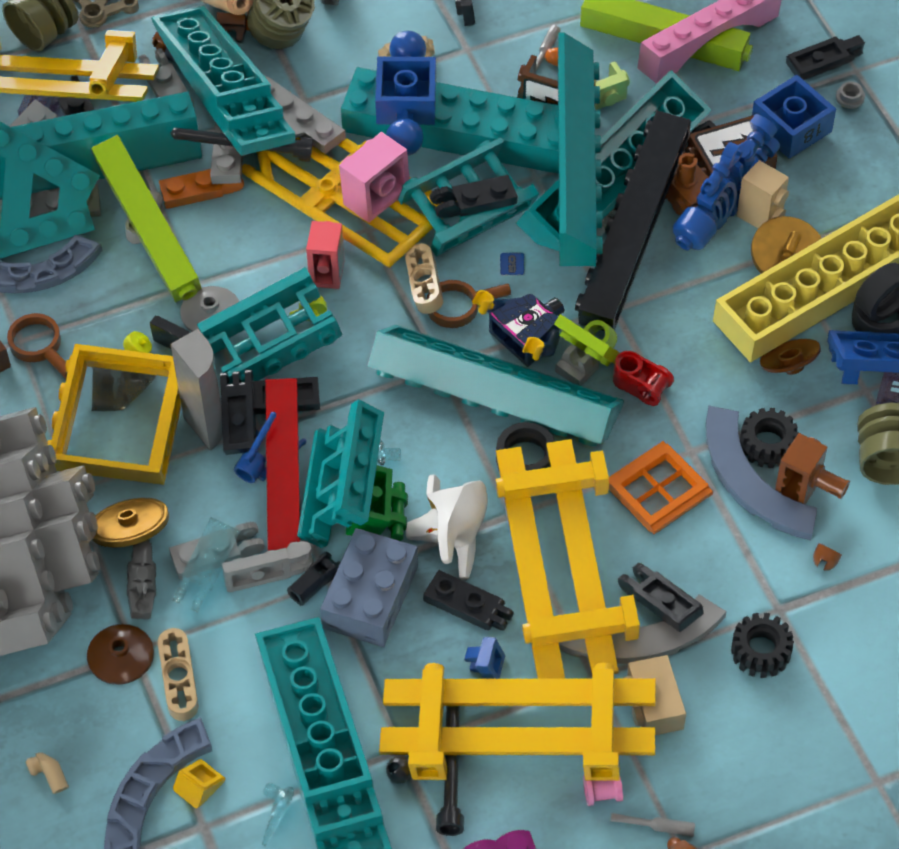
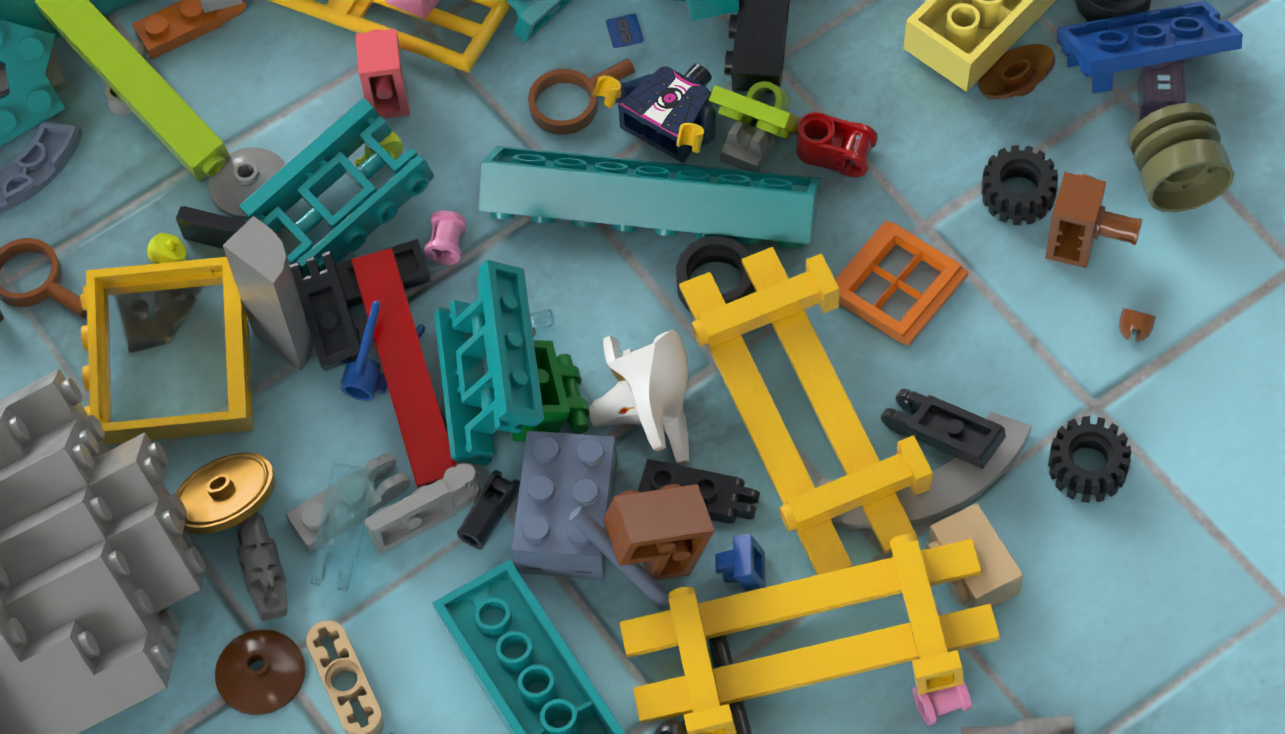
camera: 10 degrees left, 5 degrees up
(338, 381) = (445, 237): none -> bright pink bush
(395, 631) = (634, 572): none -> sand blue bar
(430, 285) = (530, 83): tan beam -> none
(430, 617) = (660, 529): none -> dark orange brick
(746, 484) = (1005, 251): sand blue tile -> none

